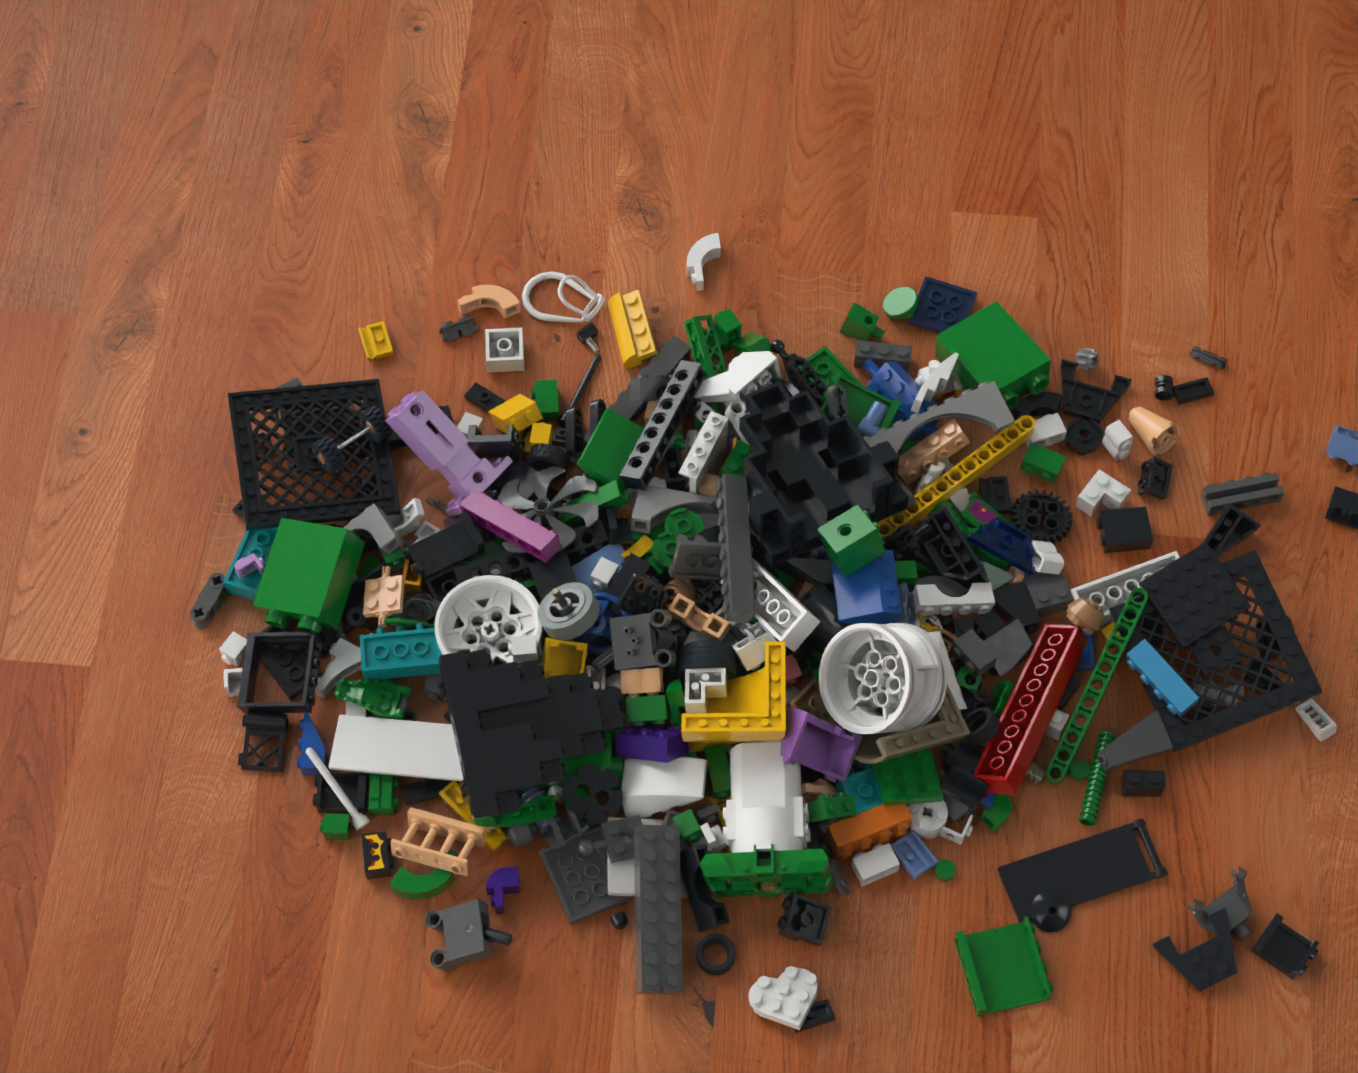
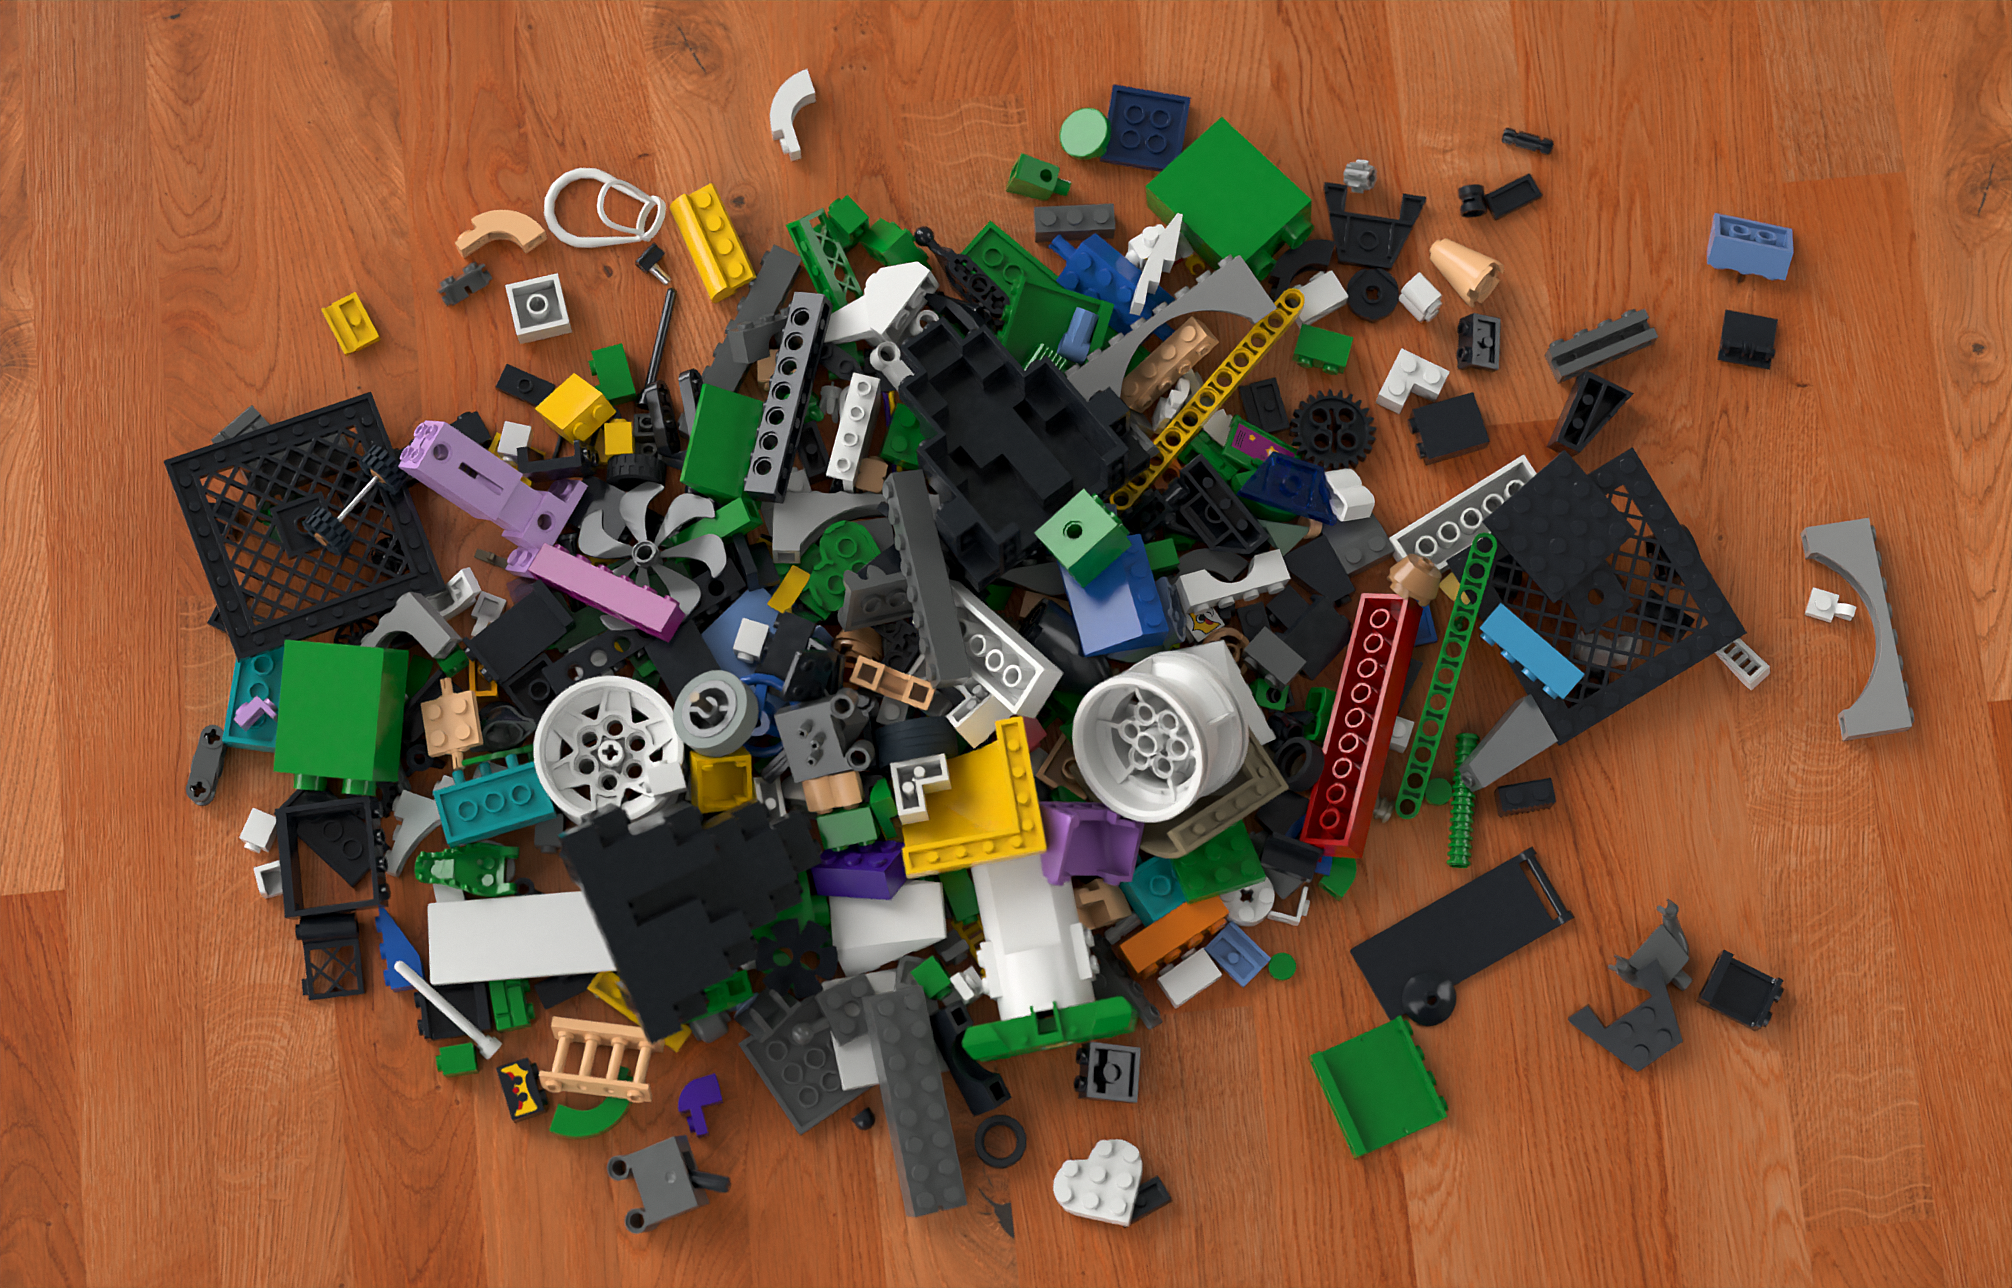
camera: 15 degrees left, 15 degrees up
(831, 808) = (1121, 922): green brick -> none
(837, 402) = (1025, 322): dark grey beam -> none

